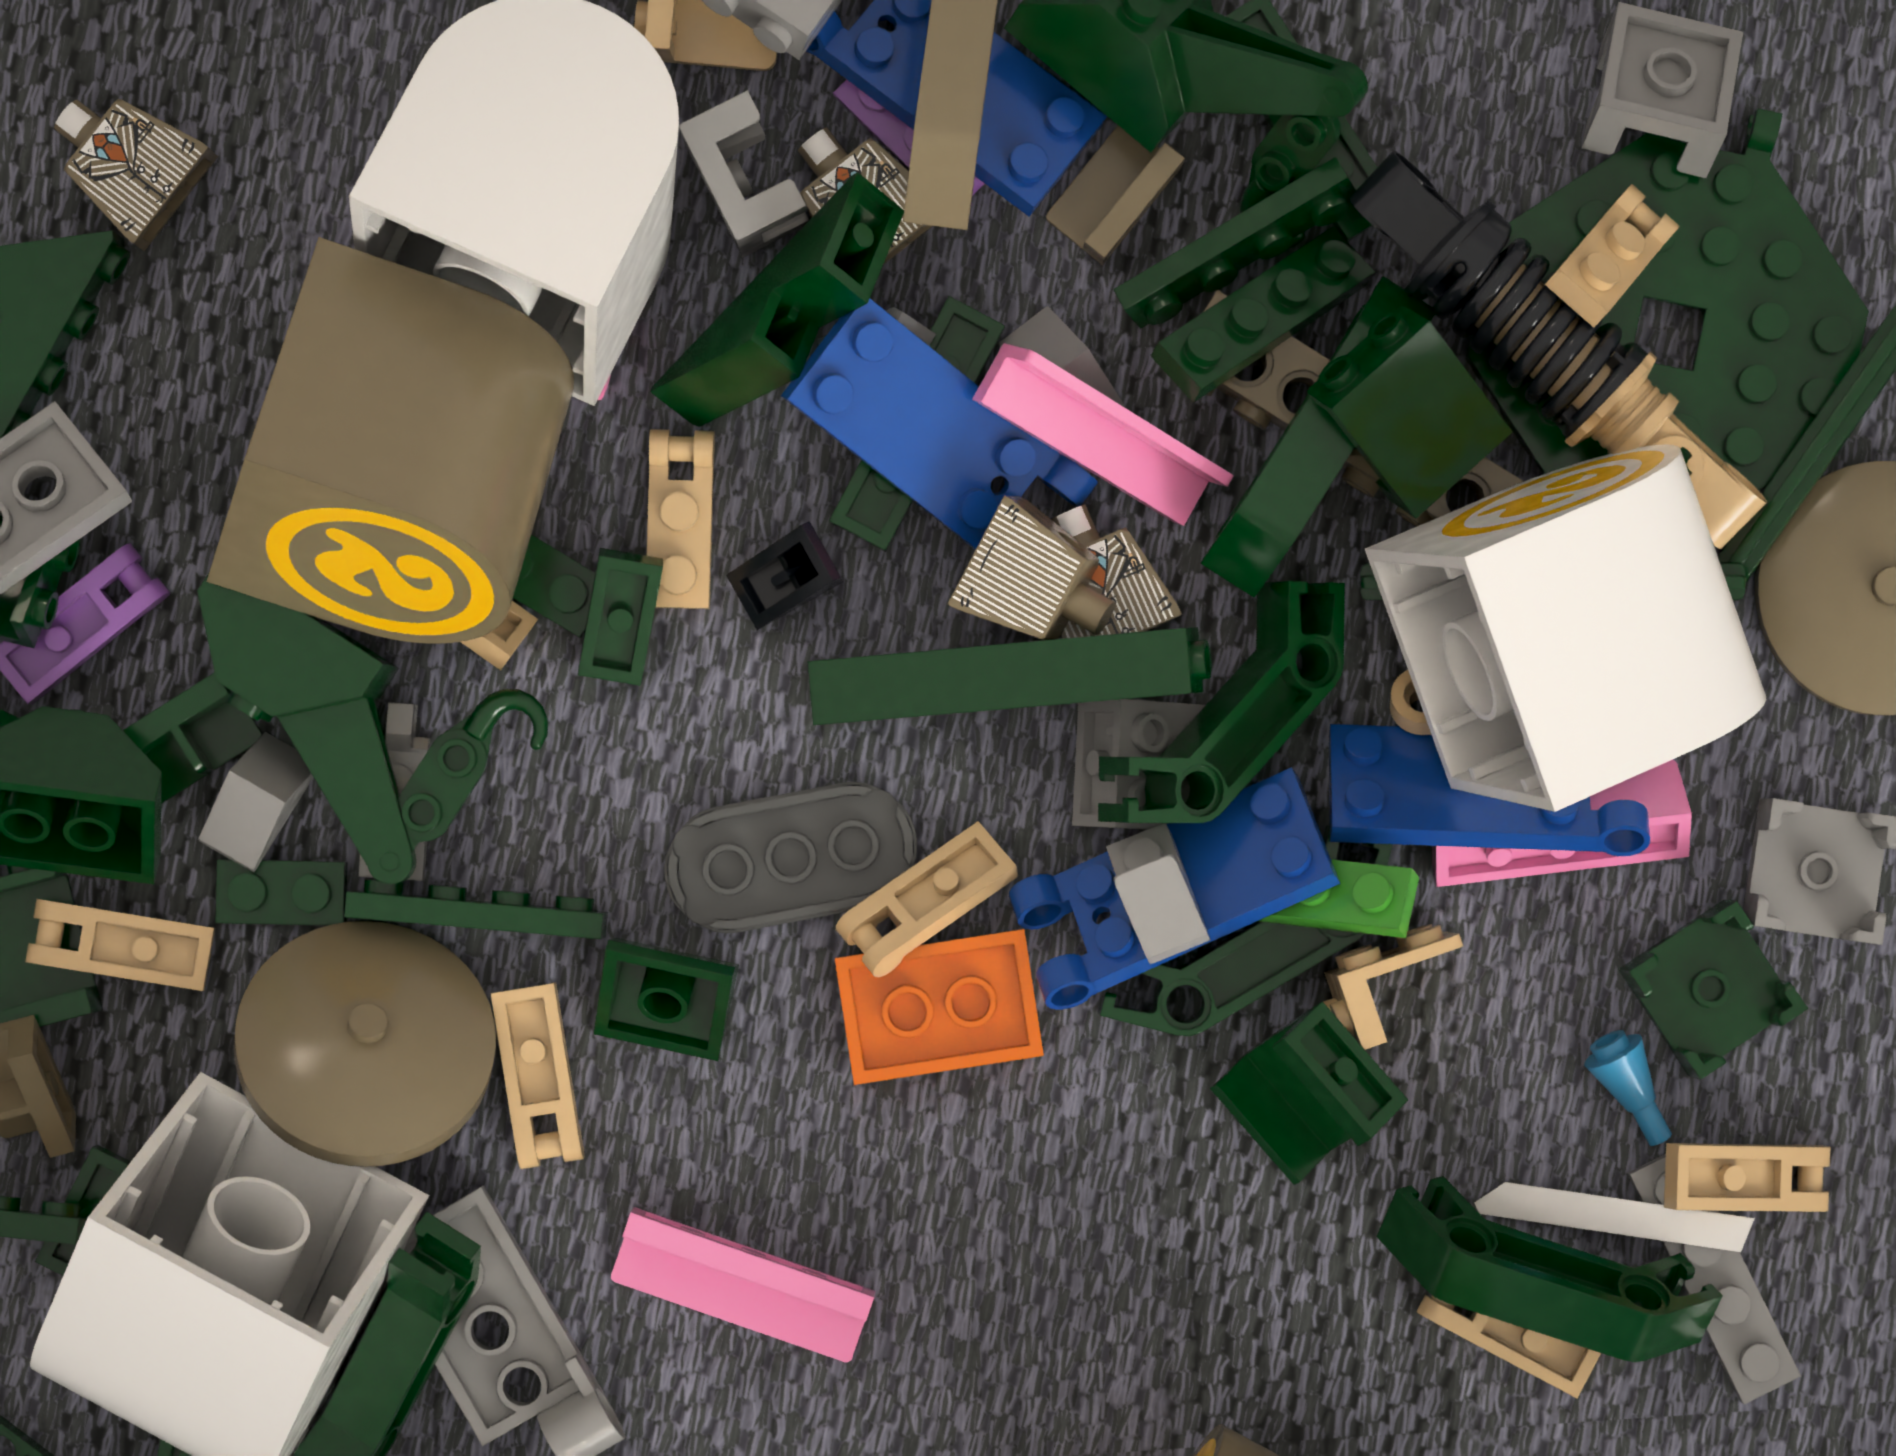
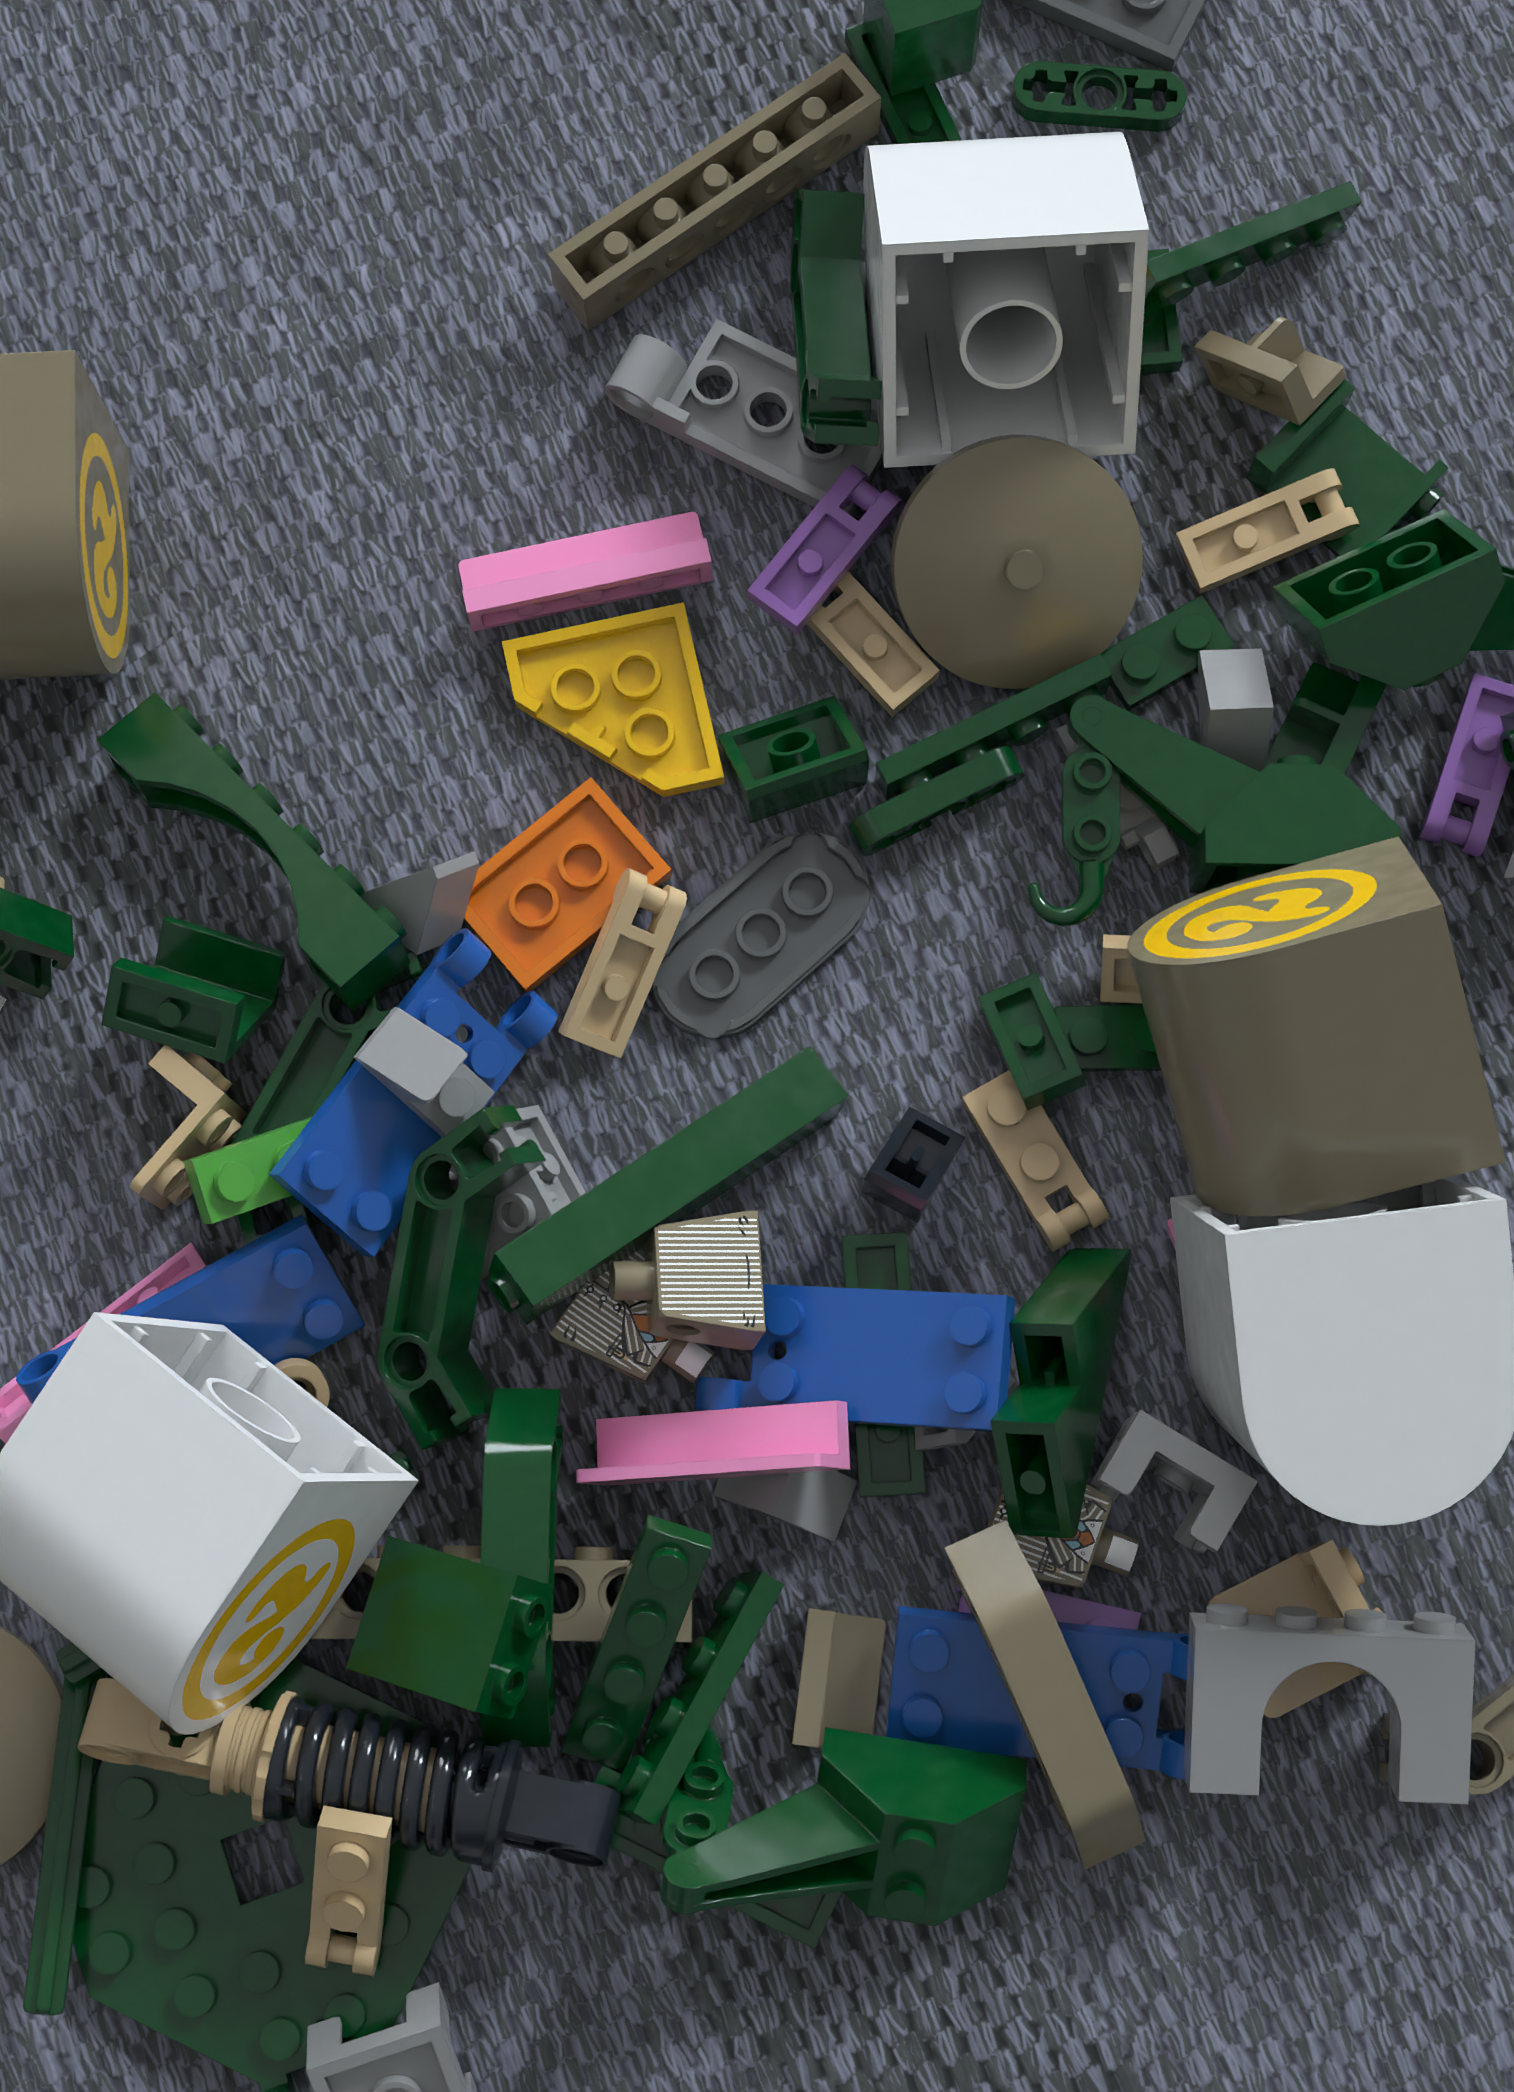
camera: 150 degrees right, 10 degrees down
(526, 1162) = (823, 550): none -> medium lavender plate
(566, 879) = (950, 791): none -> dark green beam
(778, 1145) = (624, 694): none -> yellow plate
(1071, 1058) = (429, 901): none -> light grey slope
(1212, 1316) = (176, 770): none -> dark green arch

